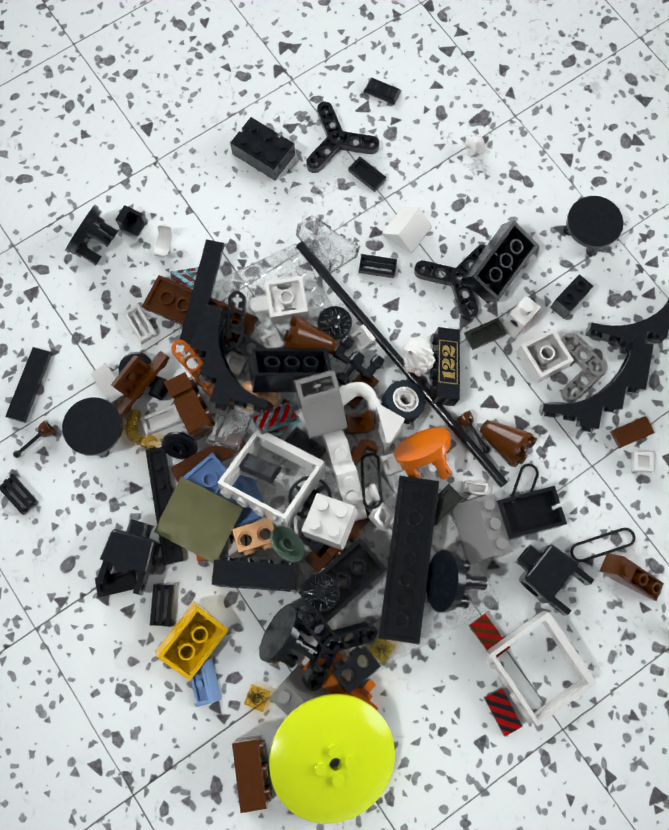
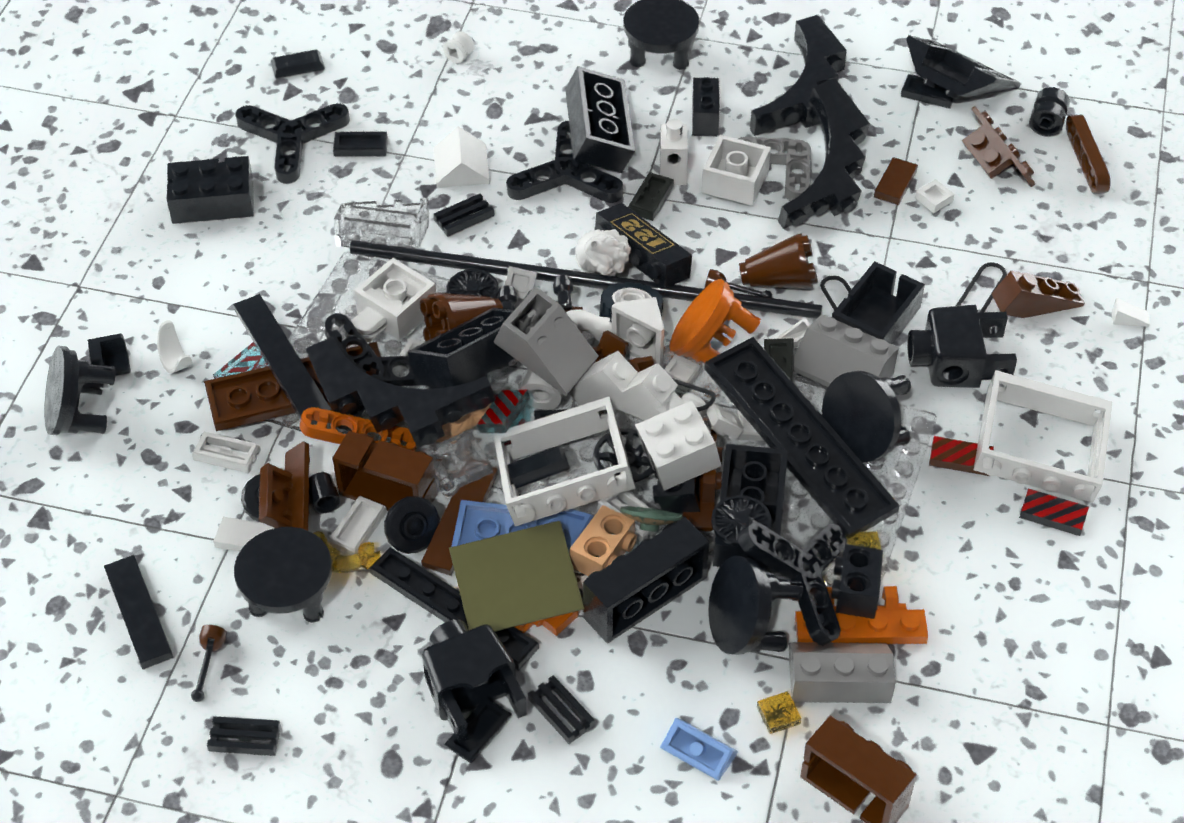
camera: 40 degrees left, 25 degrees down
(191, 641) = (638, 706): yellow slope -> none
(315, 735) = (891, 690): neon yellow dish -> none

